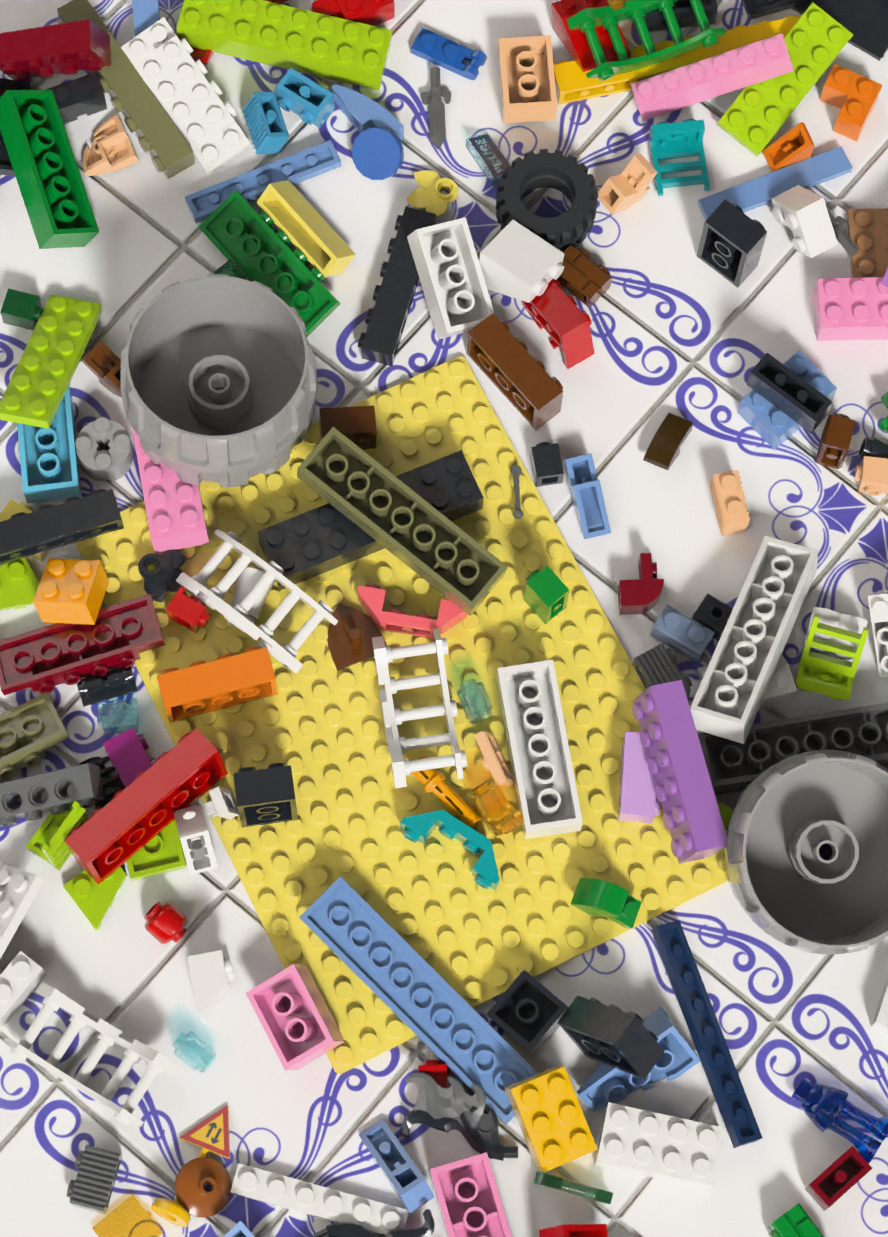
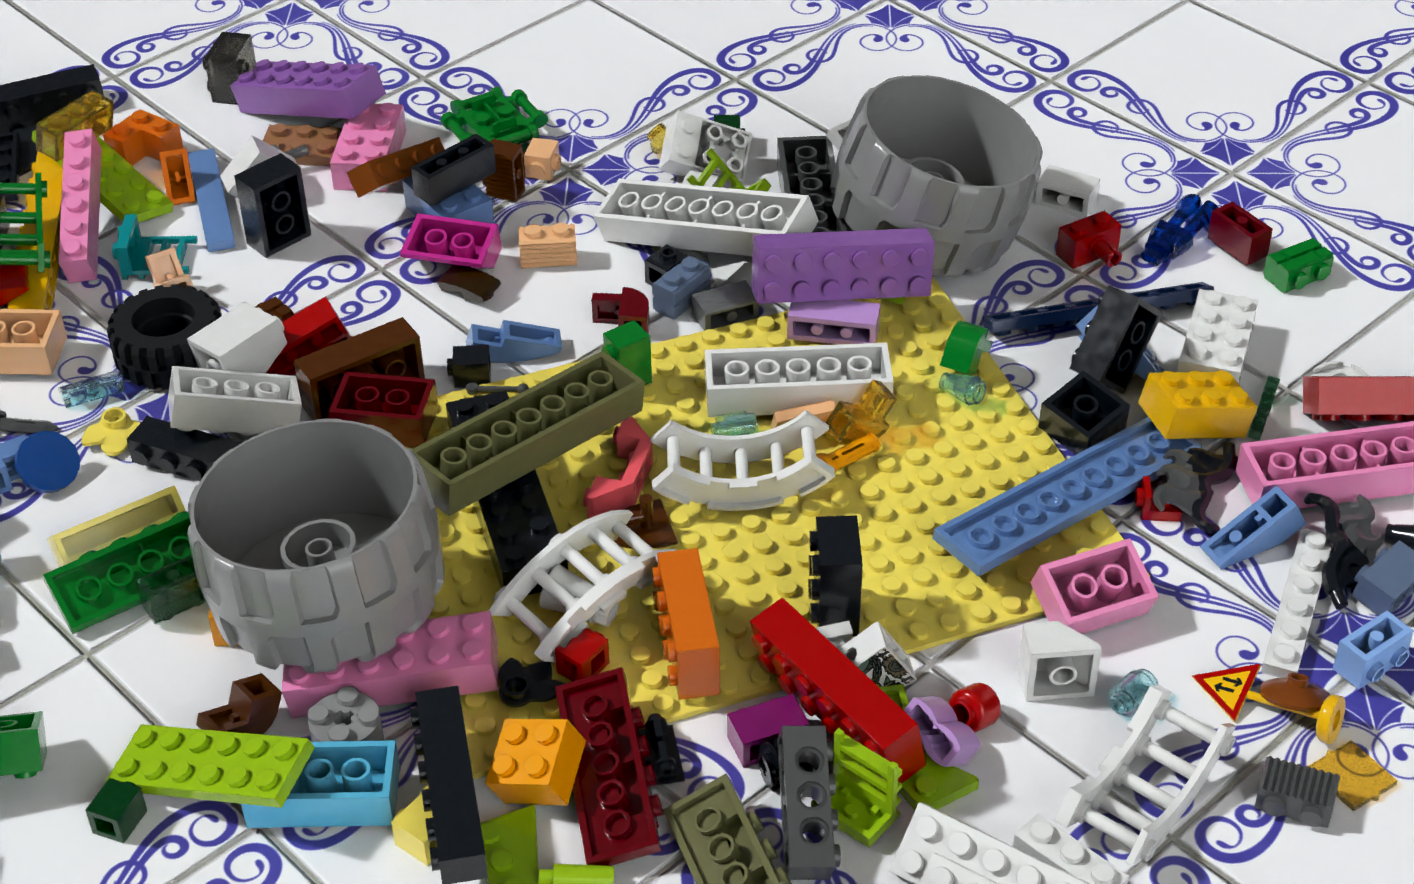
camera: 80 degrees left, 30 degrees down
(119, 716) = (706, 737): clear light blue brick -> none
(131, 894) = (941, 733): none -> lavender brick
(252, 184) = (33, 560): medium blue plate -> none
(421, 826) = (916, 431): teal slope -> none
(459, 401) = (390, 402): none -> dark red brick
(556, 903) = (963, 387): none -> clear light blue cone
(707, 415) = (453, 241): none -> dark pink slope
(810, 1024) = (1090, 240): none -> red brick
(814, 37) = (84, 113): none -> clear yellow brick
(816, 342) = (391, 168): none -> dark orange brick

